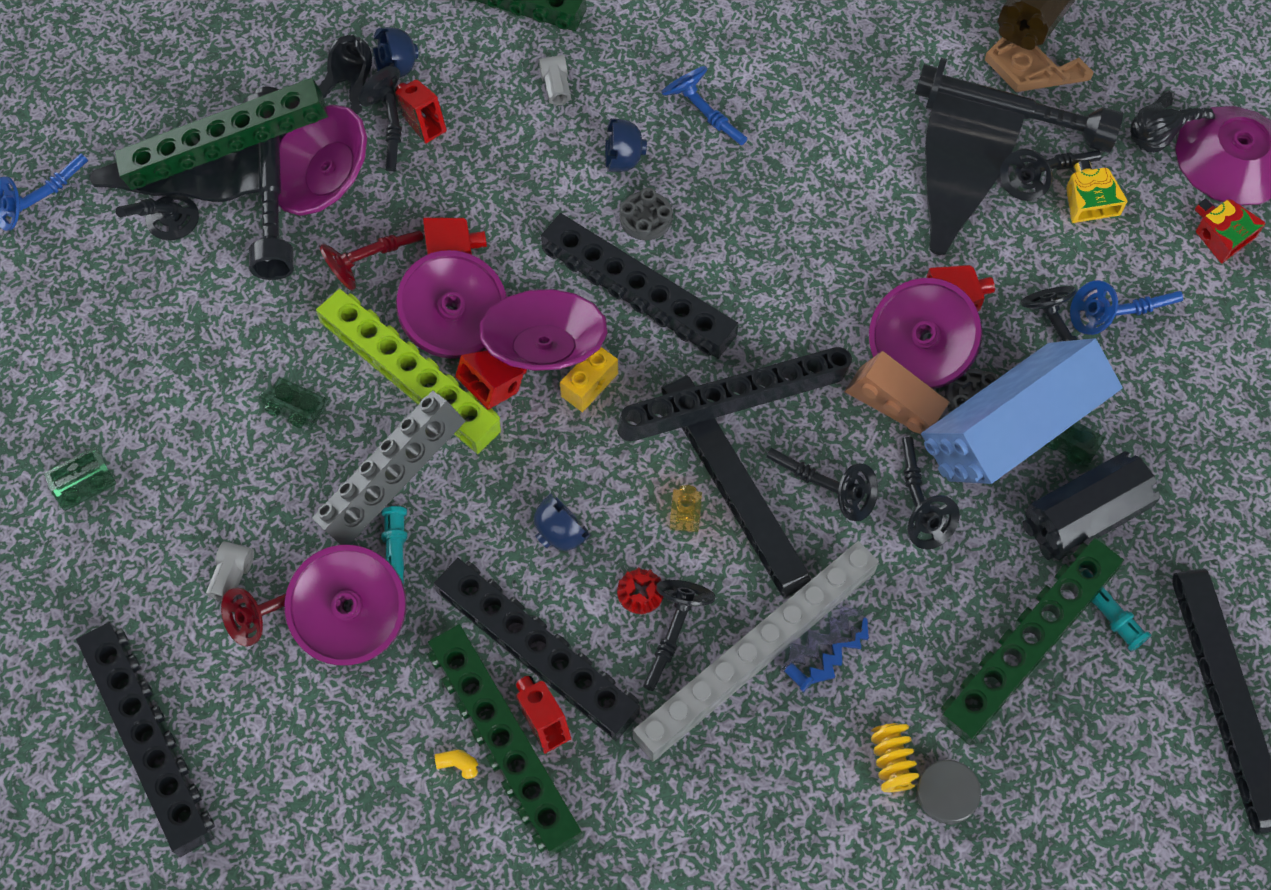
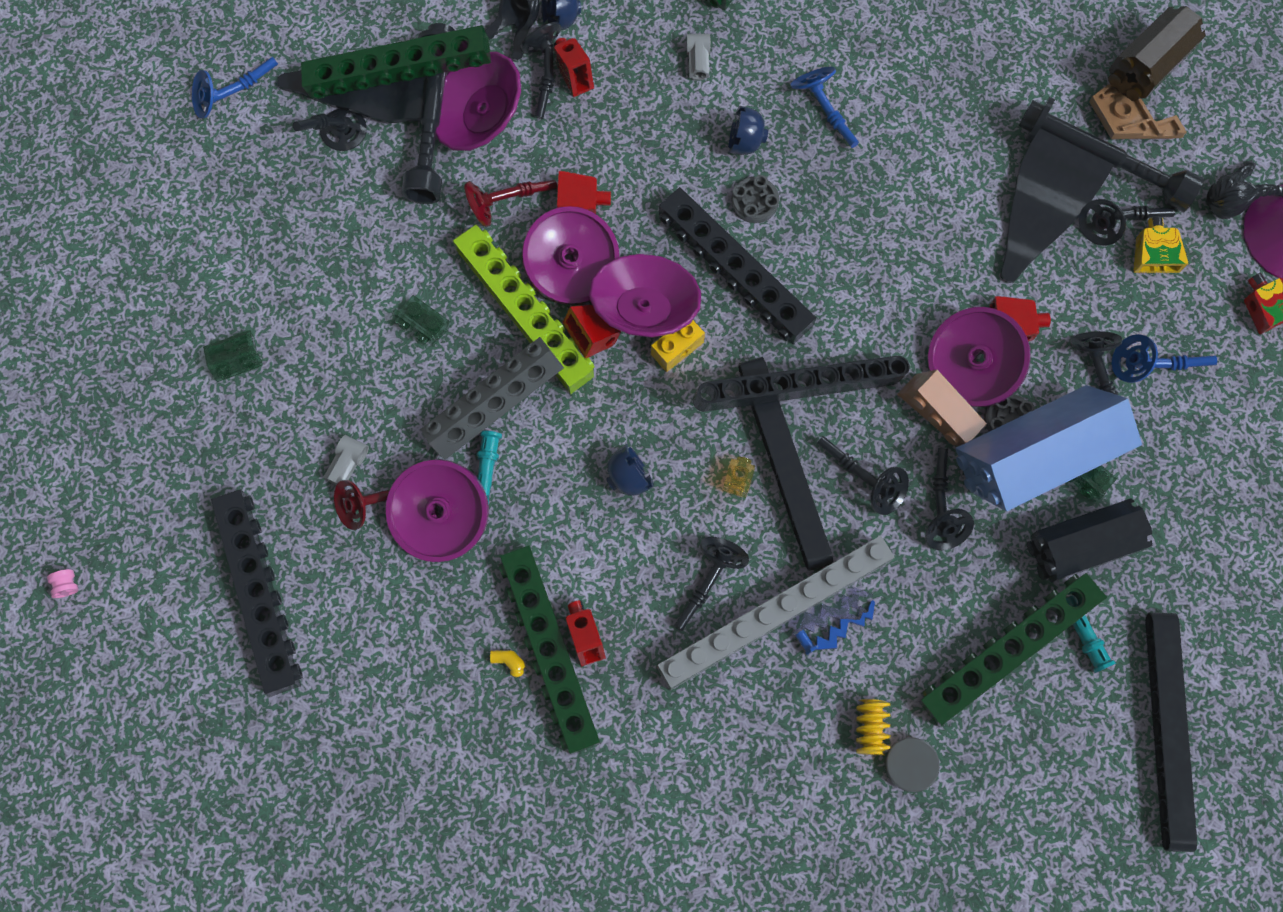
camera: 10 degrees right, 10 degrees up
(611, 720) = (539, 501): black brick -> none
(637, 603) = (682, 552): red gear -> none

